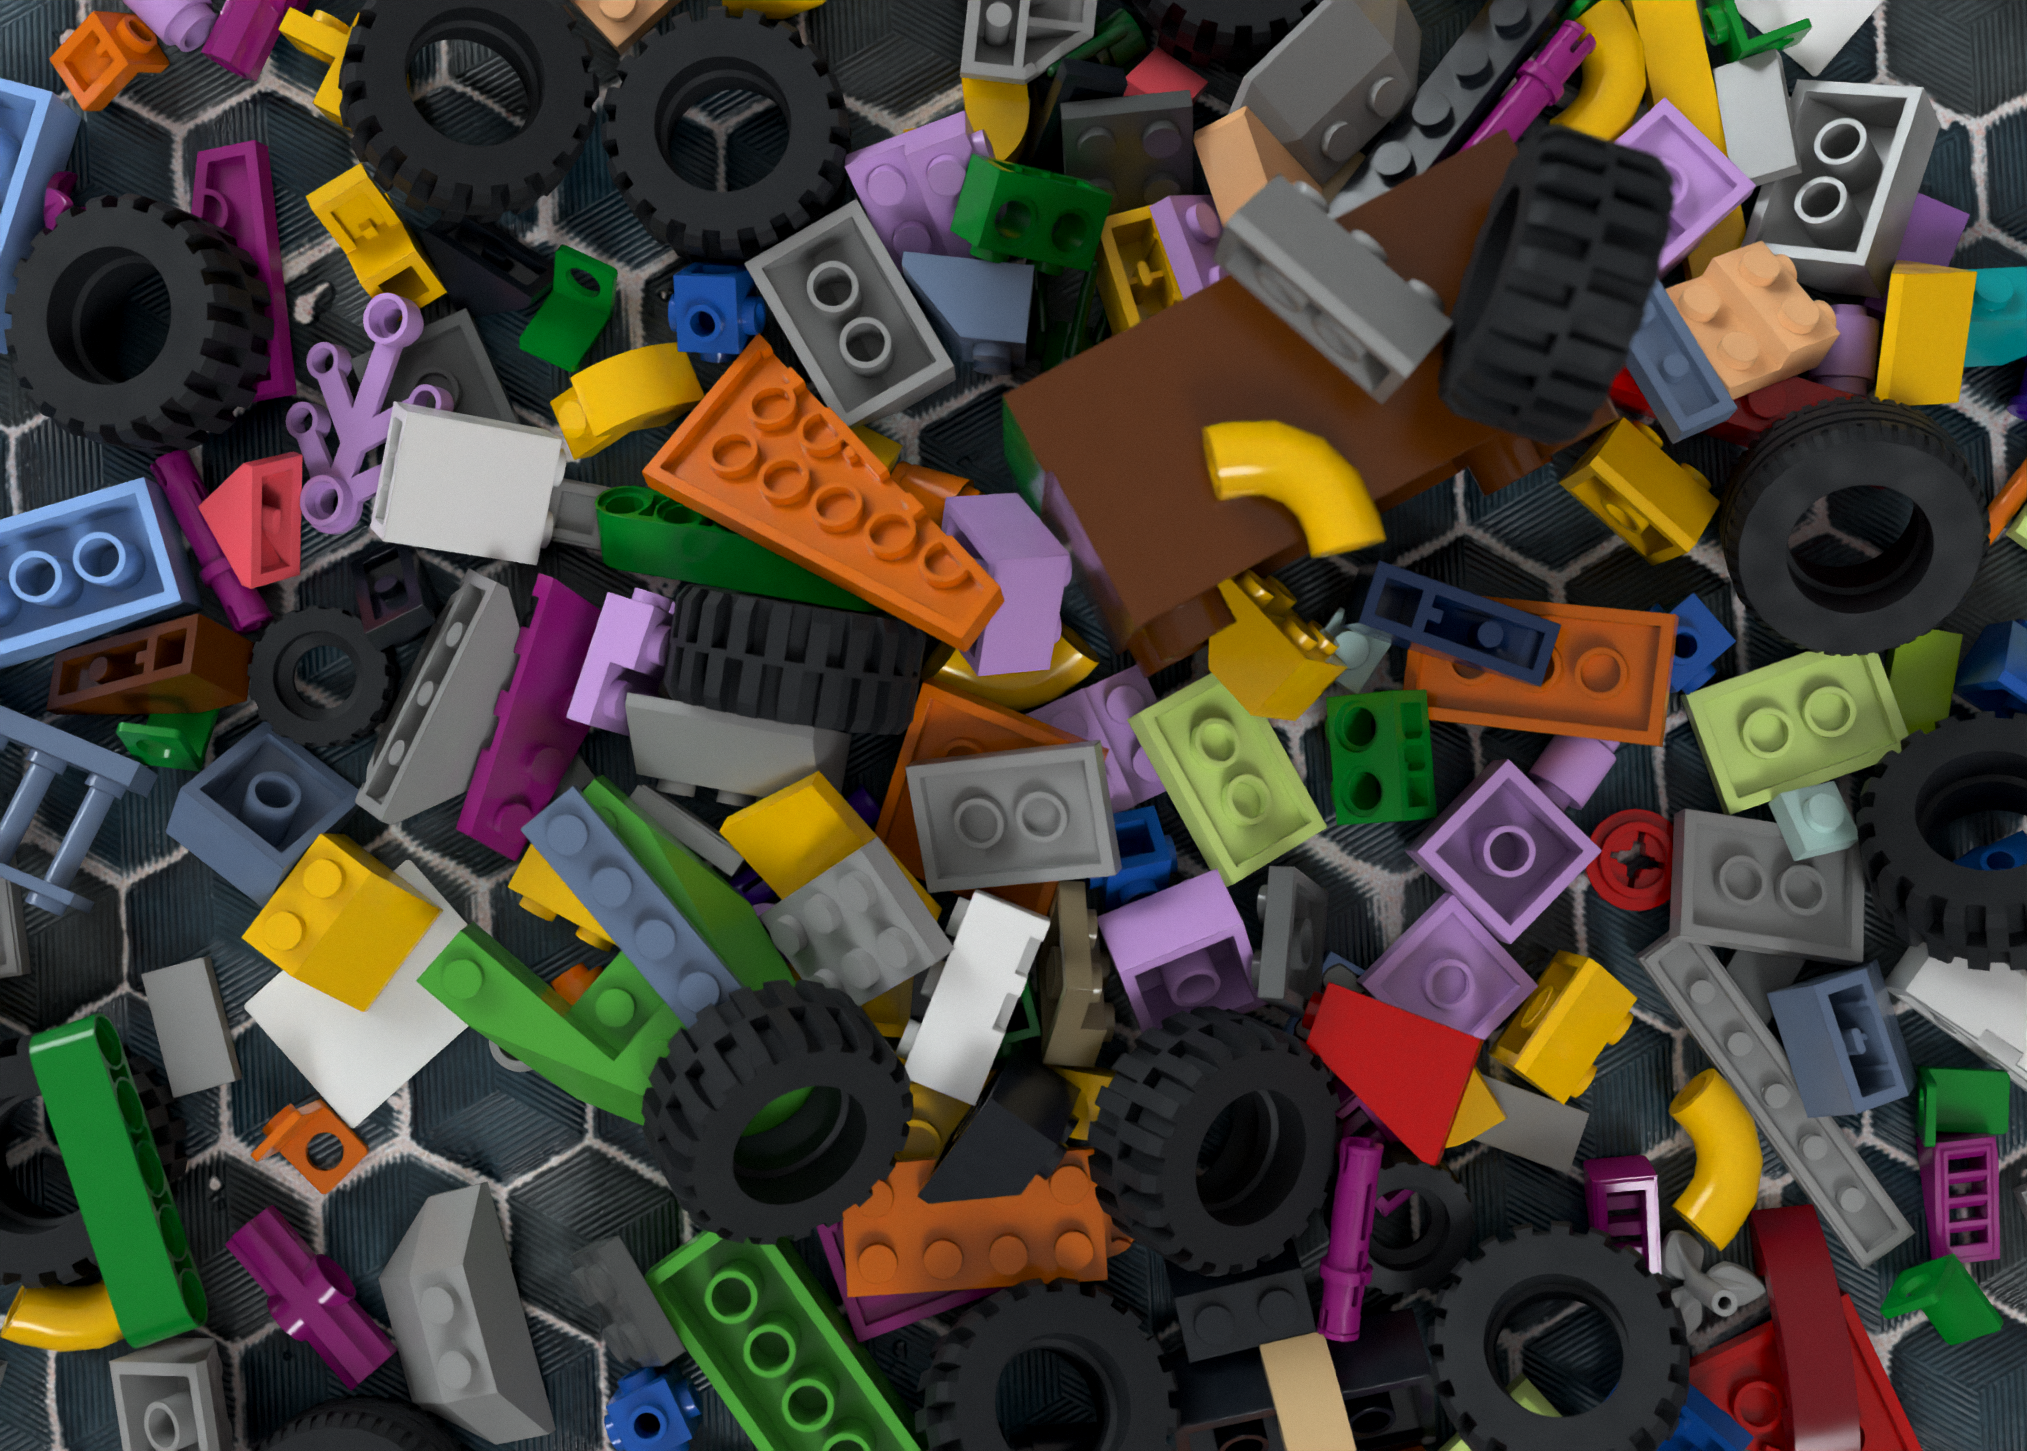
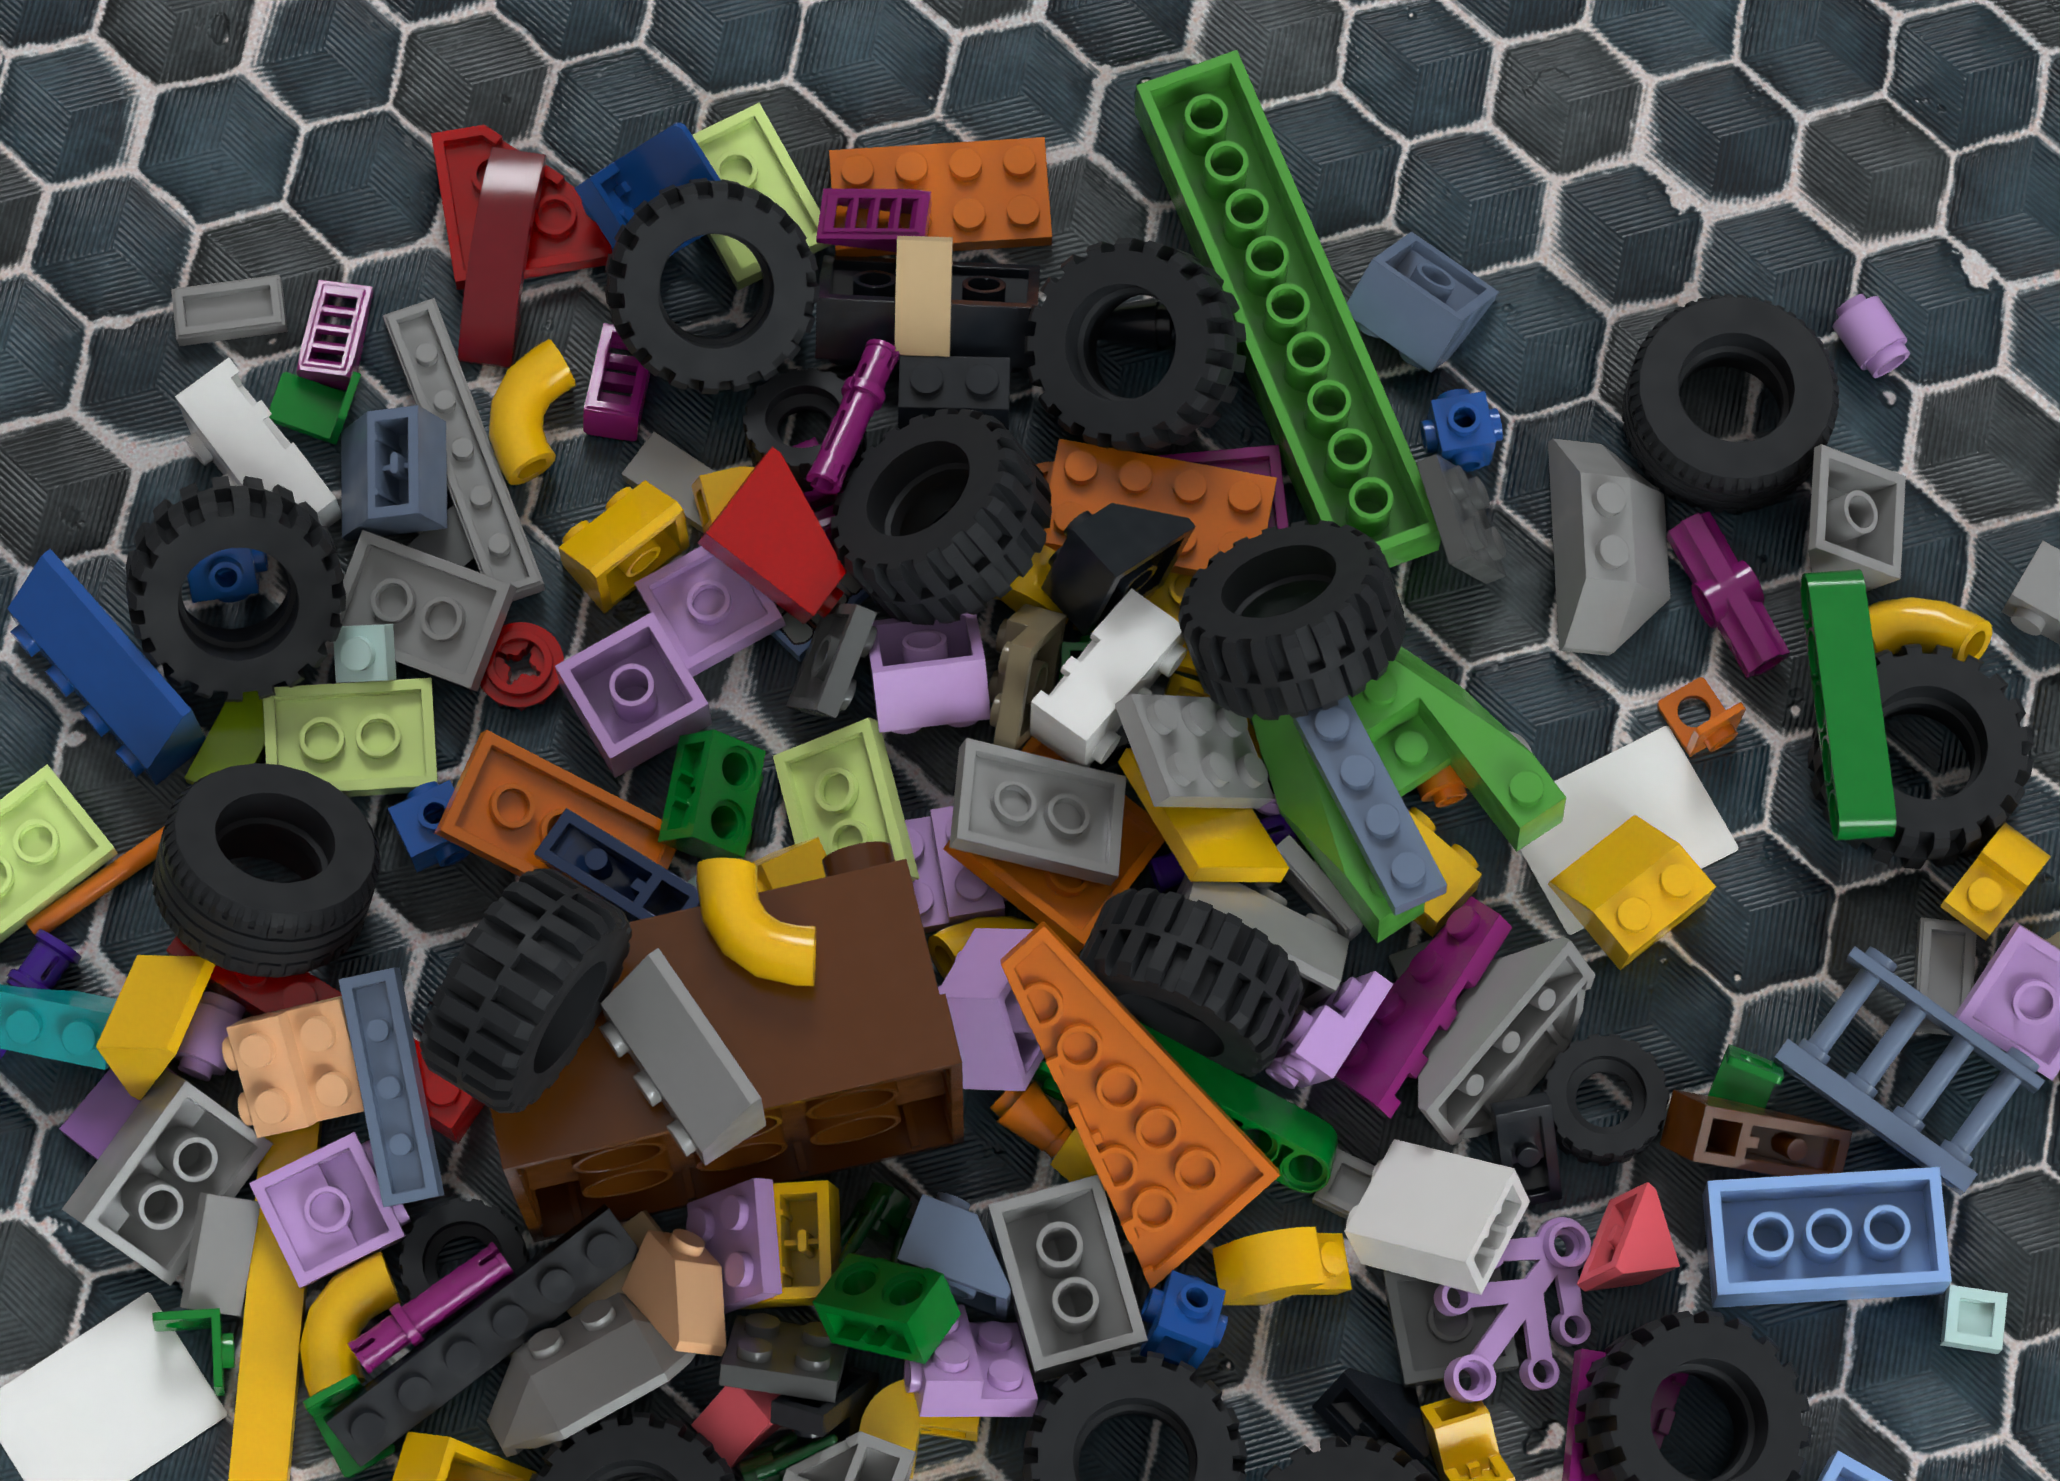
camera: 165 degrees left, 15 degrees down
(185, 492) = (1690, 1279): magenta pin -> none
(191, 1026) = (1785, 840): light grey tile -> none
(260, 811) = (1680, 995): sand blue slope -> none
(571, 314) = (1315, 1355): green bracket -> none
(1145, 859) = (928, 763): blue brick -> none
(1572, 769) = (558, 742): lavender brick -> none
(1642, 492) = (415, 939): yellow slope -> none
(1720, 1288) = (569, 313): light grey plant -> none
(1946, 1297) = (374, 262): green bracket -> none

